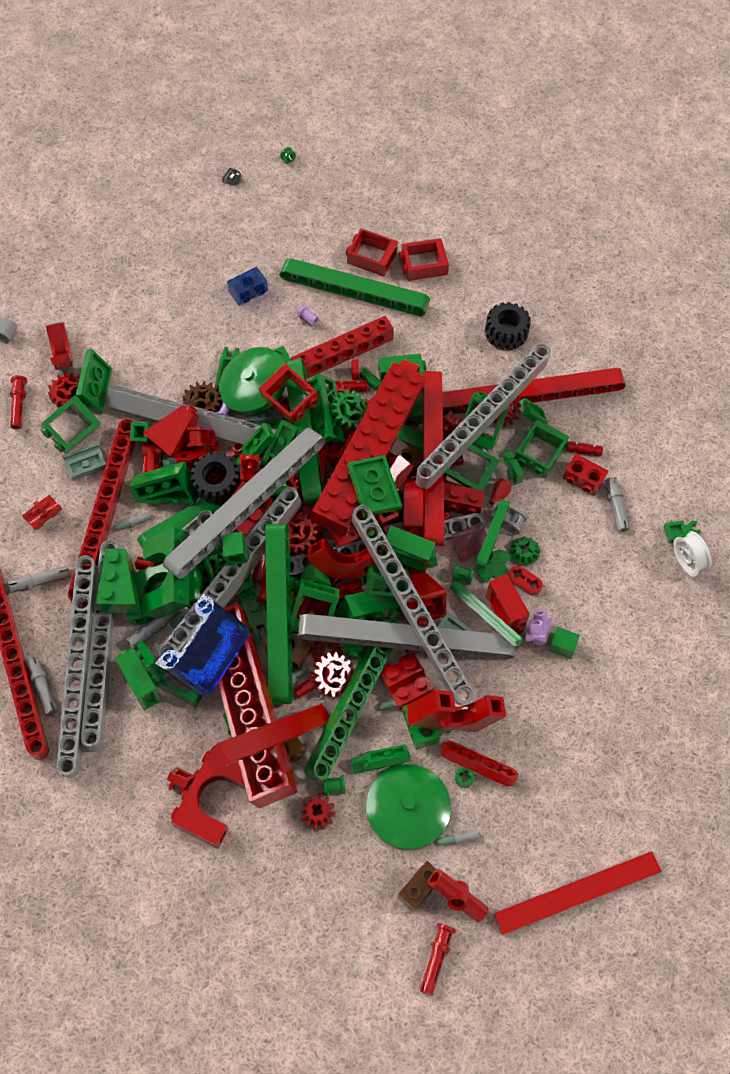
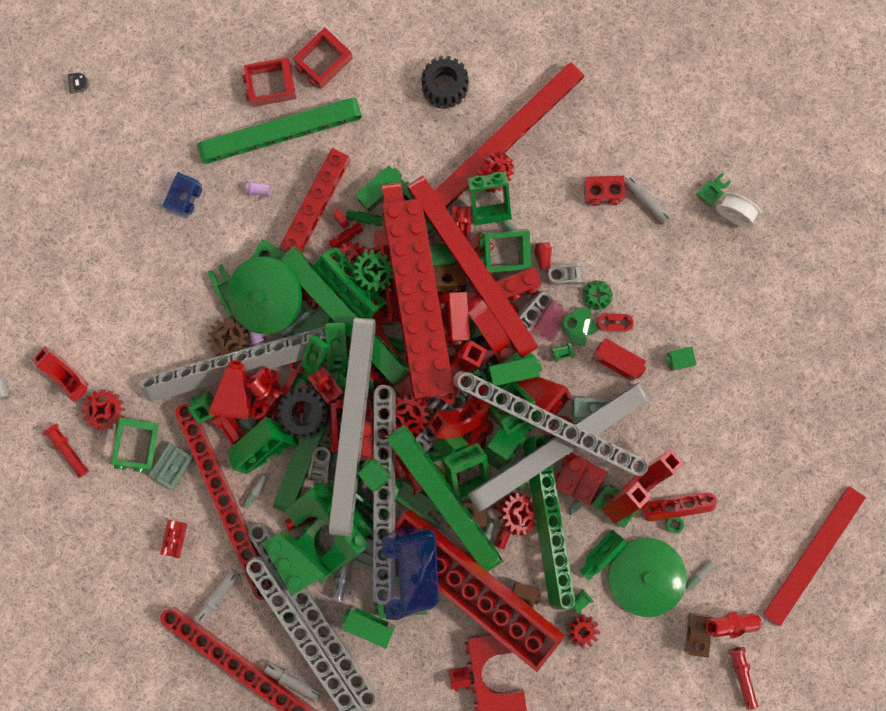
camera: 30 degrees left, 20 degrees up
(94, 381) = (121, 388): green tile -> none
(149, 662) = (368, 609): green plate -> none
(271, 734) = (520, 612): red tile -> none
(276, 381) = (293, 291): red window -> none
(287, 155) = (113, 23): green bush -> none
(374, 485) = (451, 340): green tile -> none
(485, 613) = (605, 378): axle -> none
(492, 534) = (567, 304): green beam -> none
(514, 383) = (494, 193): light grey beam -> none
(514, 469) = (543, 226): green plate -> none
(533, 411) = (524, 159): green tile -> none
(539, 628) = (655, 361): lavender hips -> none
(548, 435) = (550, 171): green window -> none
(584, 448) = (587, 162): red axle -> none

